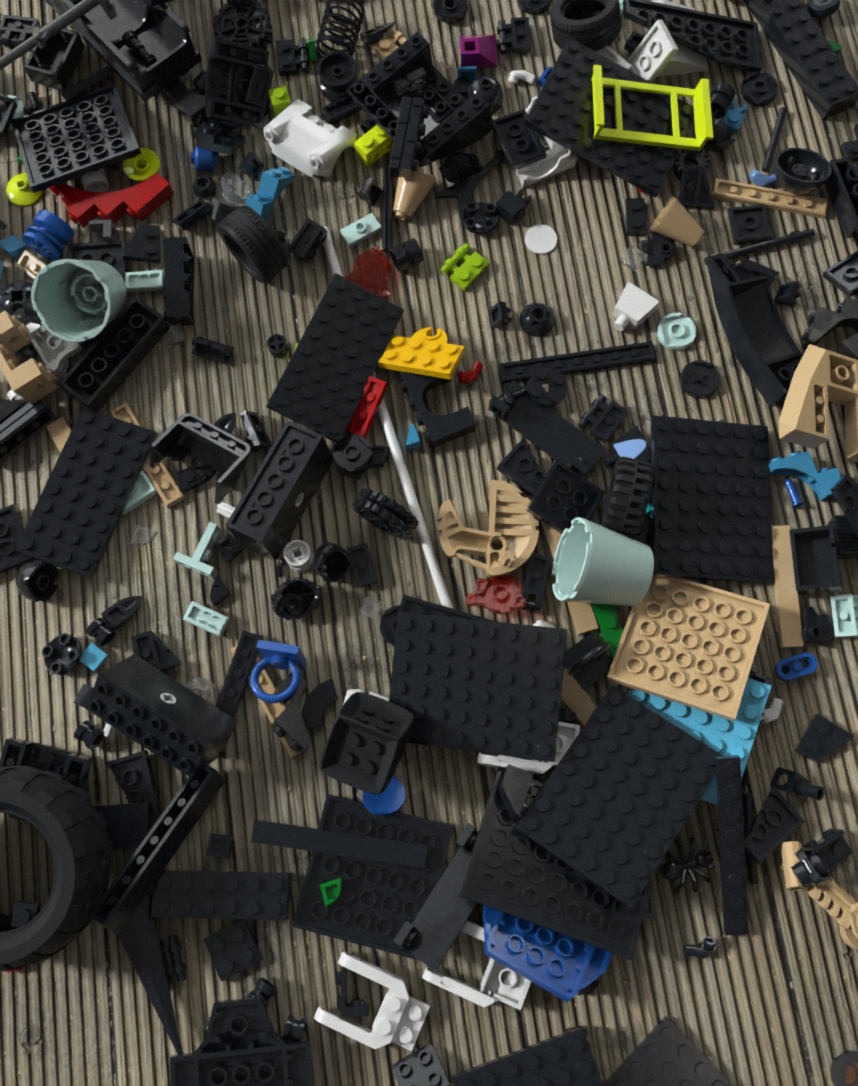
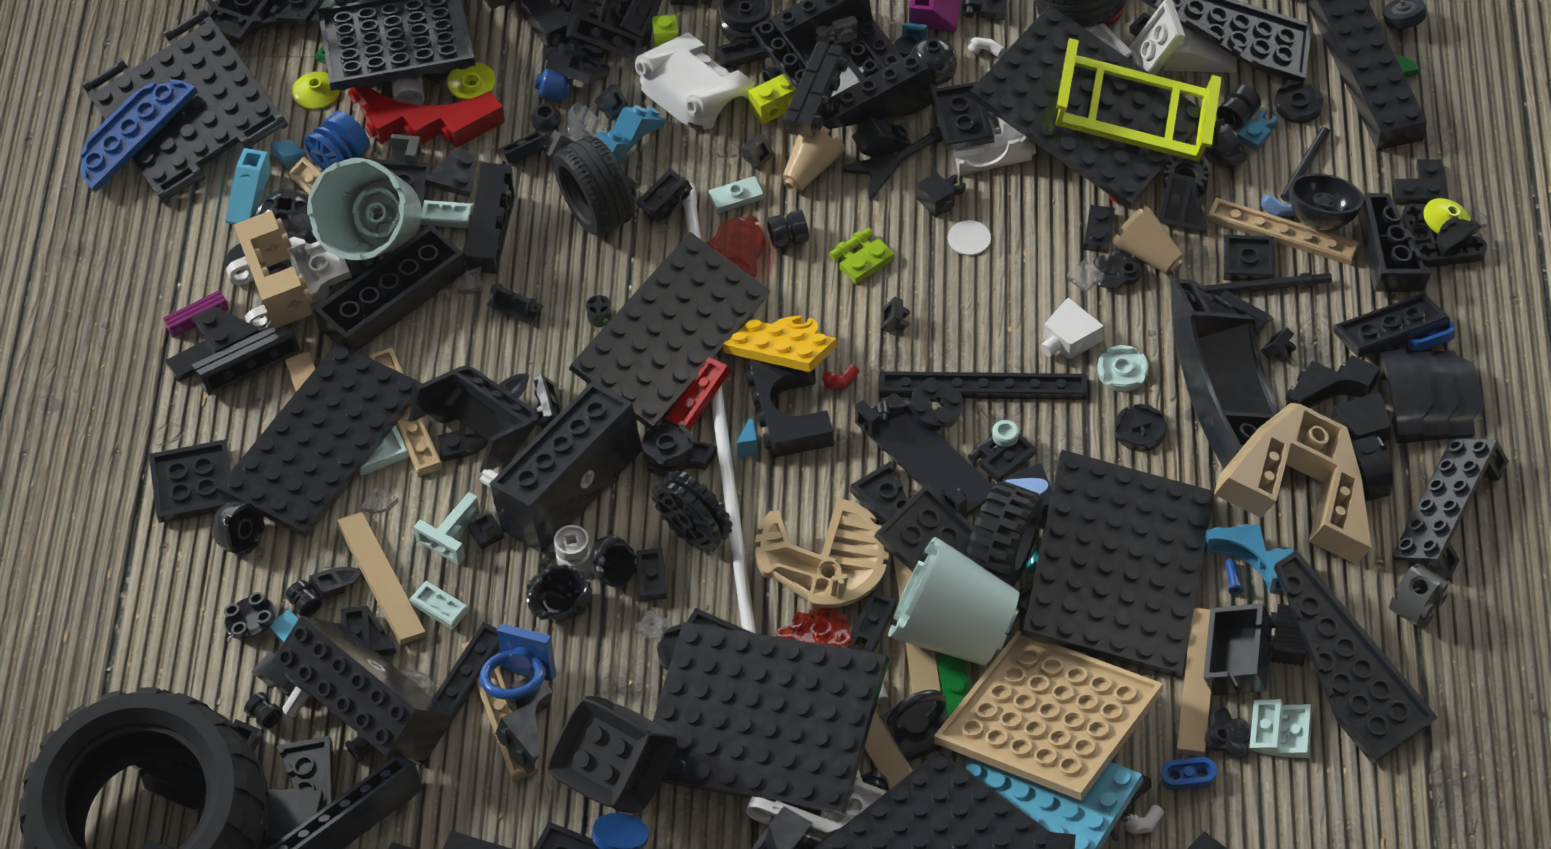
camera: 10 degrees right, 20 degrees down
(157, 602) = (381, 578): none -> tan tile
(218, 592) = (461, 579): black tile -> none
(317, 703) = (554, 722): black tile -> none
(387, 213) = (775, 177): black axle -> none
(480, 217) = (894, 201): black dish -> none
(533, 326) = (942, 336): black piece -> none
(604, 403) = (1005, 433): none -> light aqua tile

